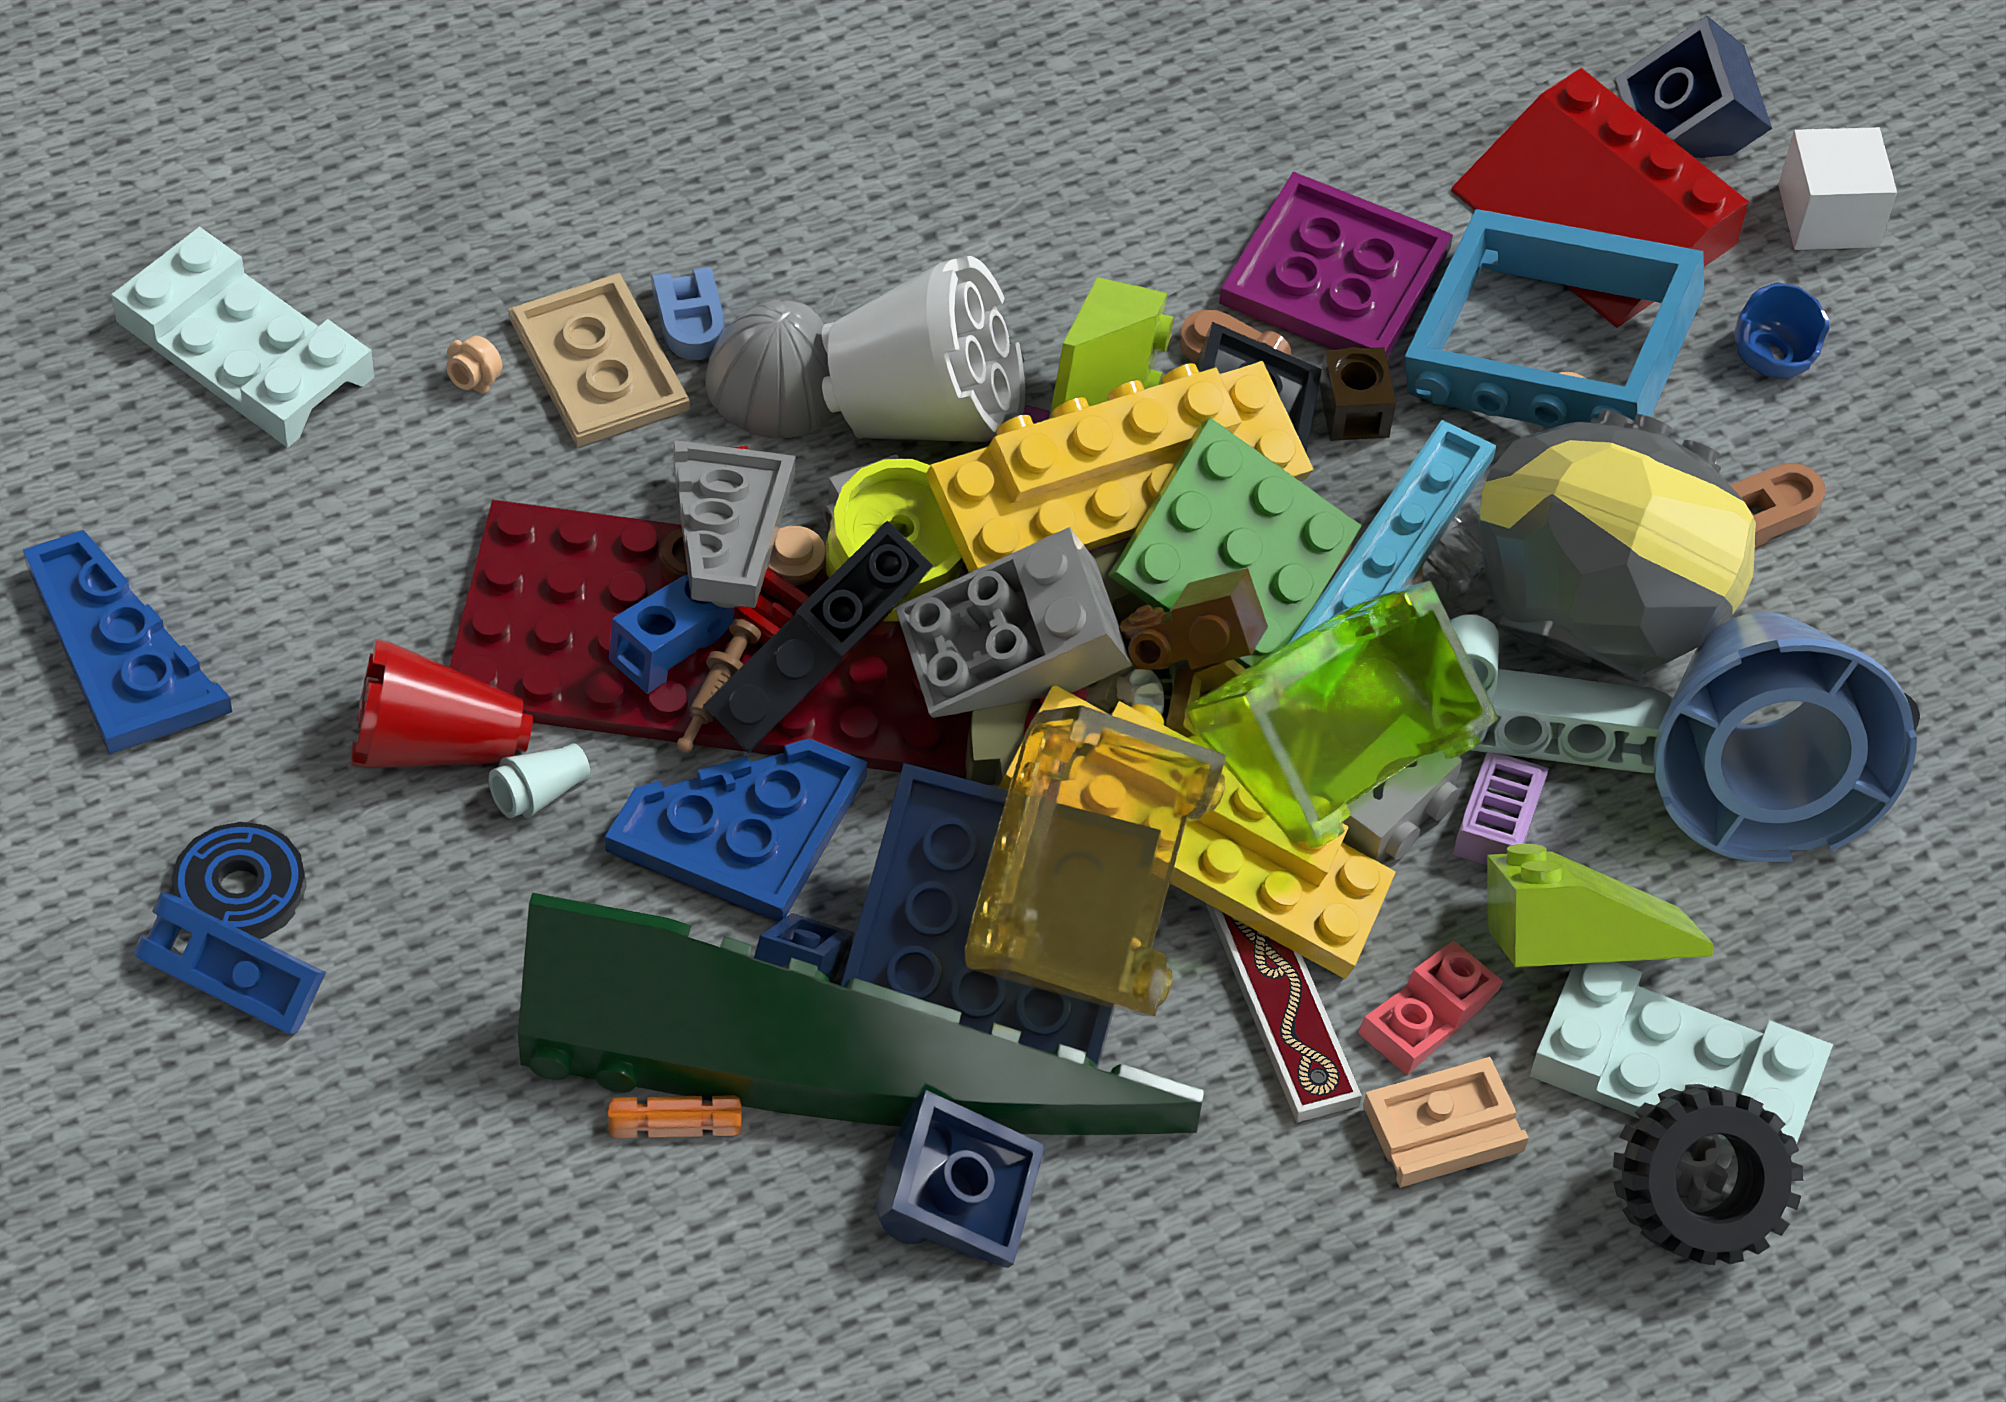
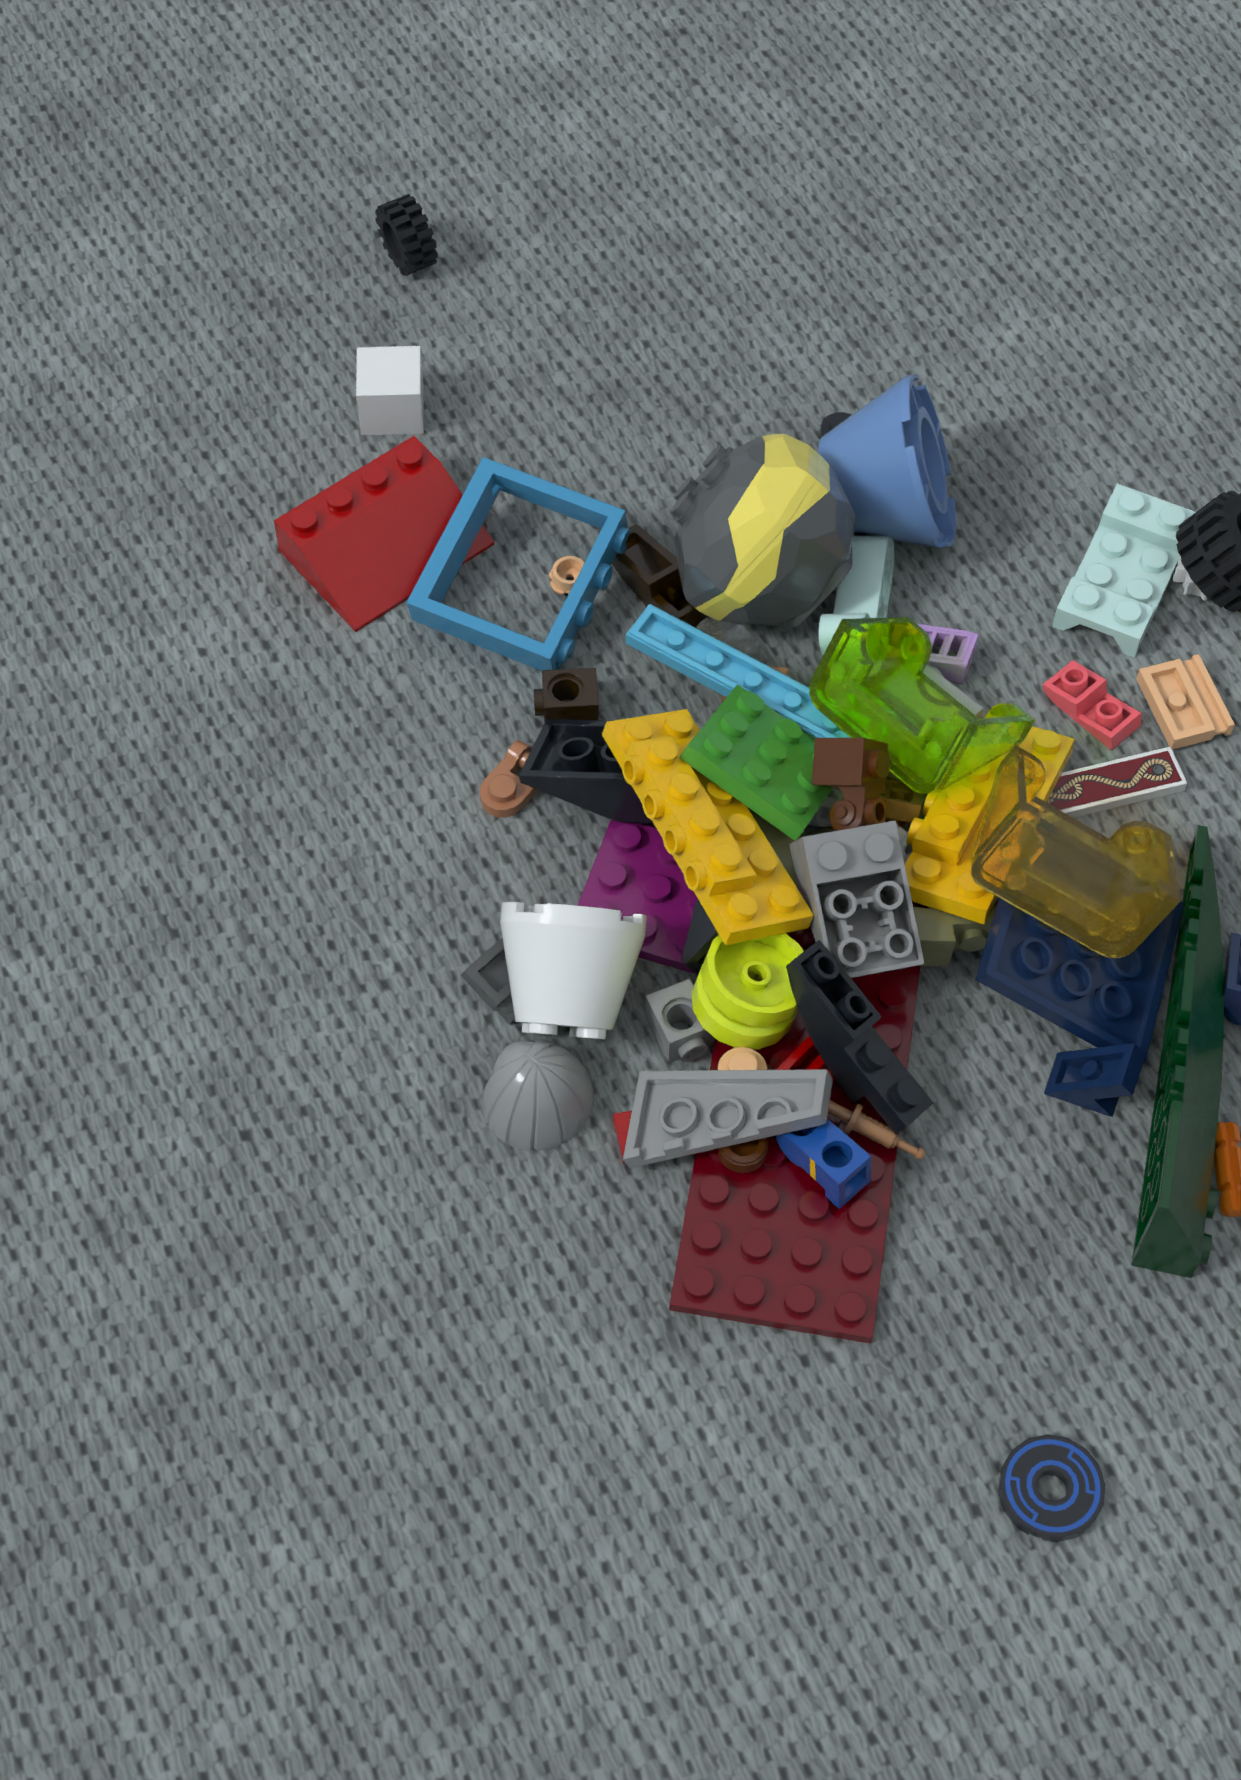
camera: 85 degrees left, 5 degrees up
(118, 648) = (837, 1594): blue wing -> none
(230, 964) = (1139, 1486): blue plate -> none
(239, 336) = (491, 1514): light aqua piece -> none
(432, 715) = (904, 1343): red cone -> none
(473, 364) = (526, 1322): light nougat plate -> none
(535, 779) = (947, 1266): light aqua cone -> none
(599, 359) = (513, 1229): tan tile -> none
(689, 312) = (487, 1153): medium blue plate -> none
(742, 824) = (979, 1120): blue plate -> none
(1112, 342) = (573, 845): lime slope -> none
(1335, 267) = (441, 706): magenta plate -> none
(1565, 913) = (1038, 601): lime slope -> none
(1699, 91) = (283, 466): dark blue slope -> none
(1787, 319) = (513, 434): blue hair -> none
(1787, 494) = (659, 458): nougat plate -> none

